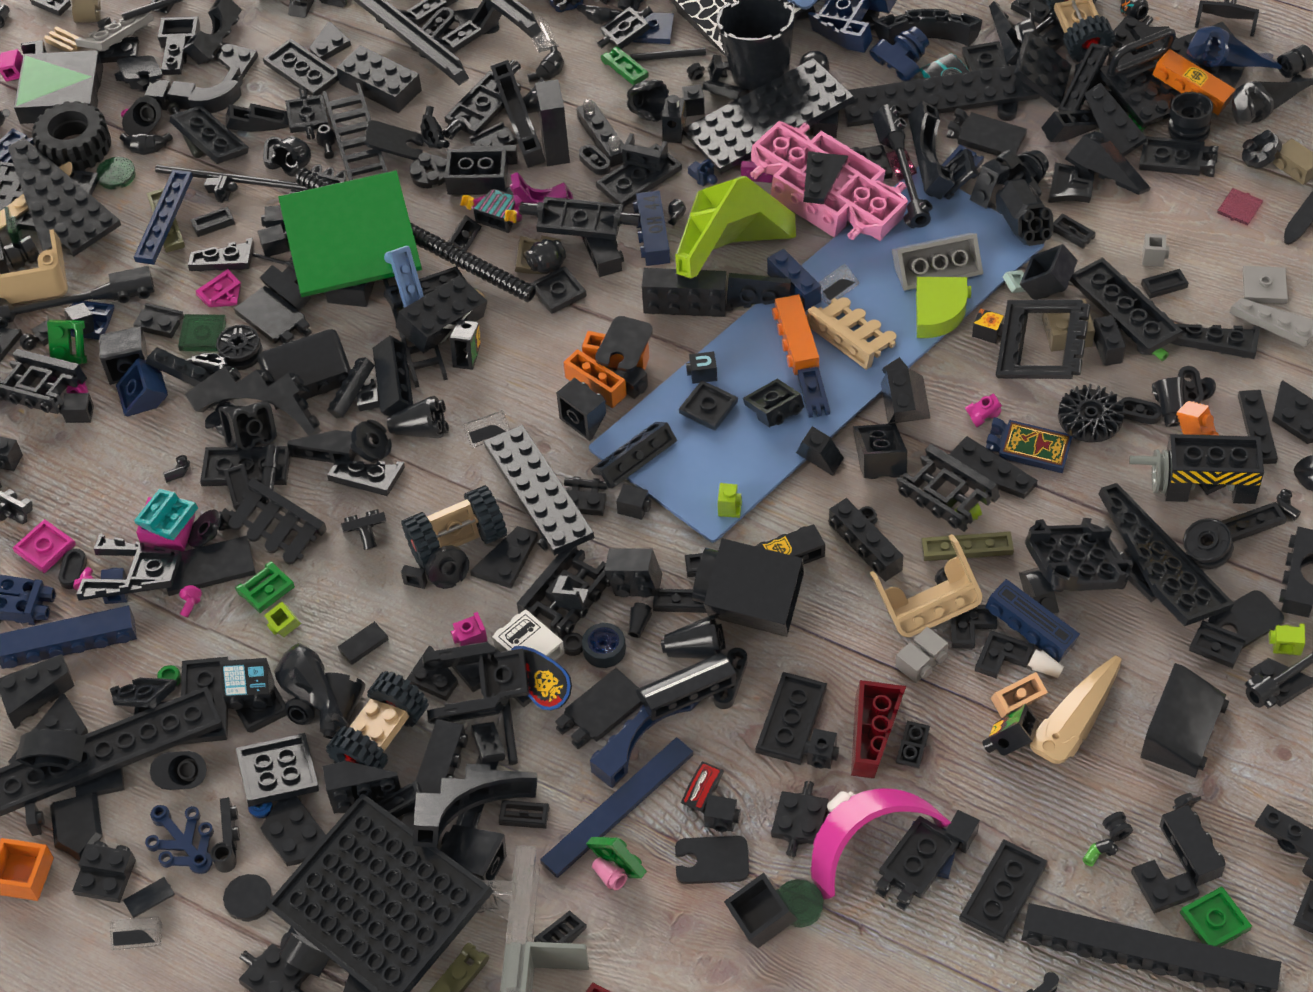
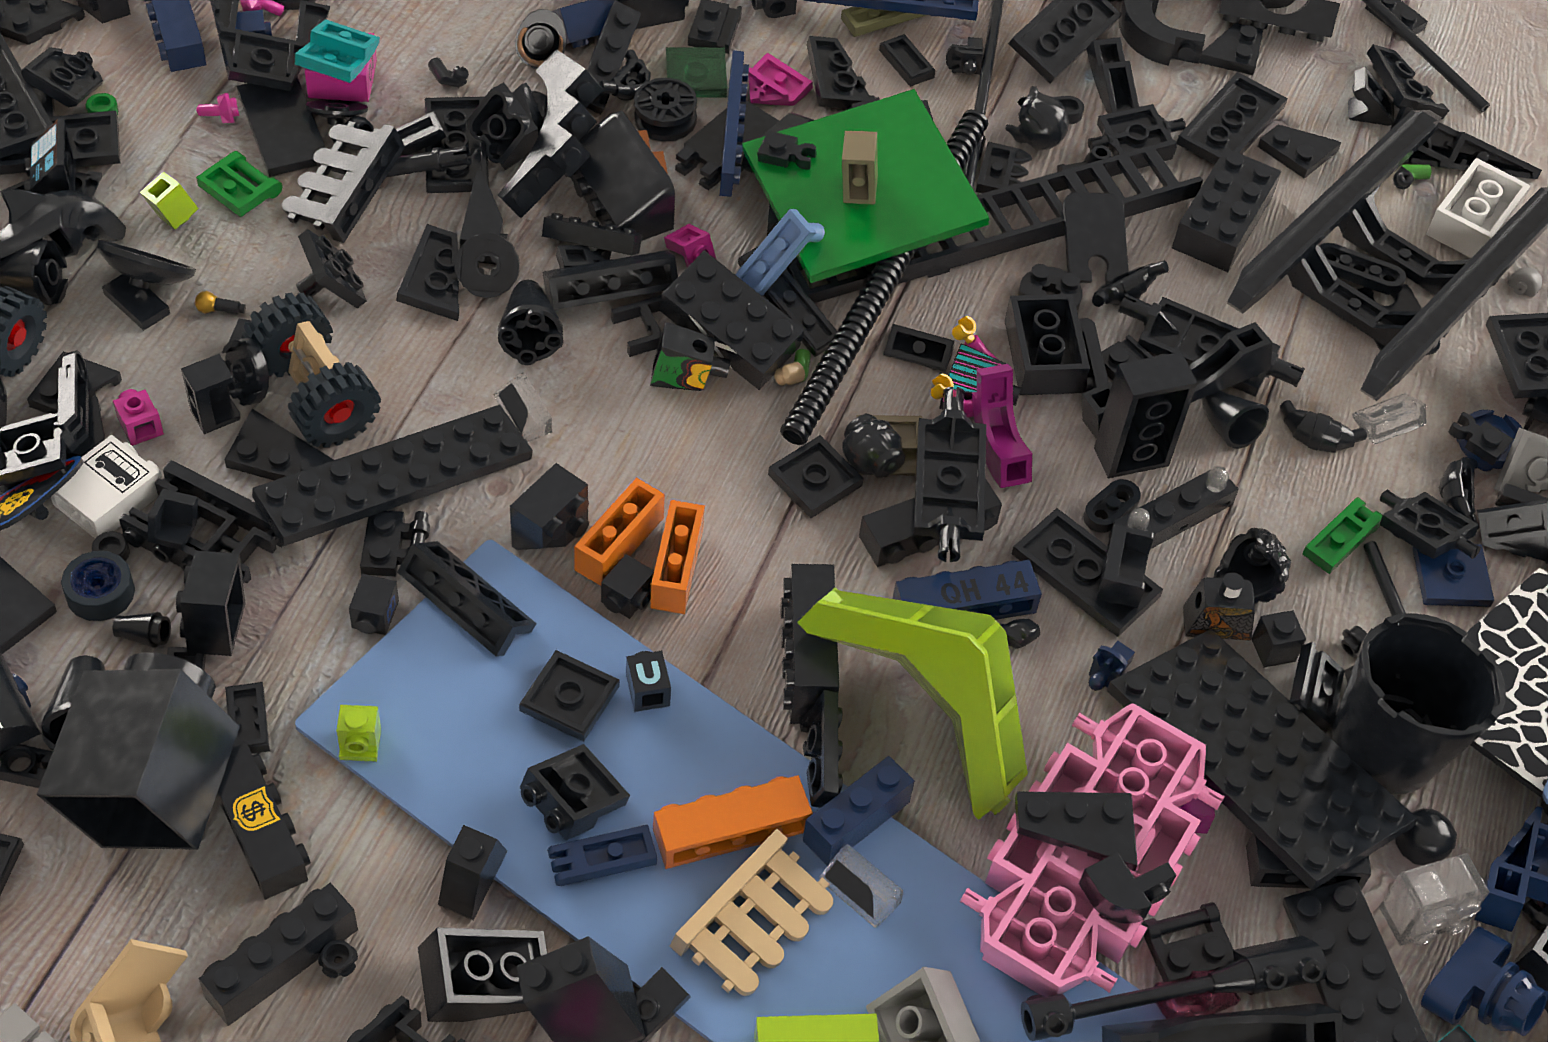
camera: 75 degrees right, 0 degrees up
(164, 410) = (539, 37): none -> piece
(267, 306) = (733, 130): none -> dark blue plate
(315, 270) = (782, 149): none -> black plate
(344, 625) = (143, 266): none -> black dish
(353, 220) = (860, 167): none -> dark tan brick
(363, 339) = (690, 243): none -> dark pink bracket
(372, 600) = (208, 302): none -> piece
(464, 583) = (209, 393): none -> black panel
(627, 338) = (683, 557): black piece -> none
(857, 61) = (1434, 900): none -> clear brick
(862, 162) = (1120, 895): none -> black brick

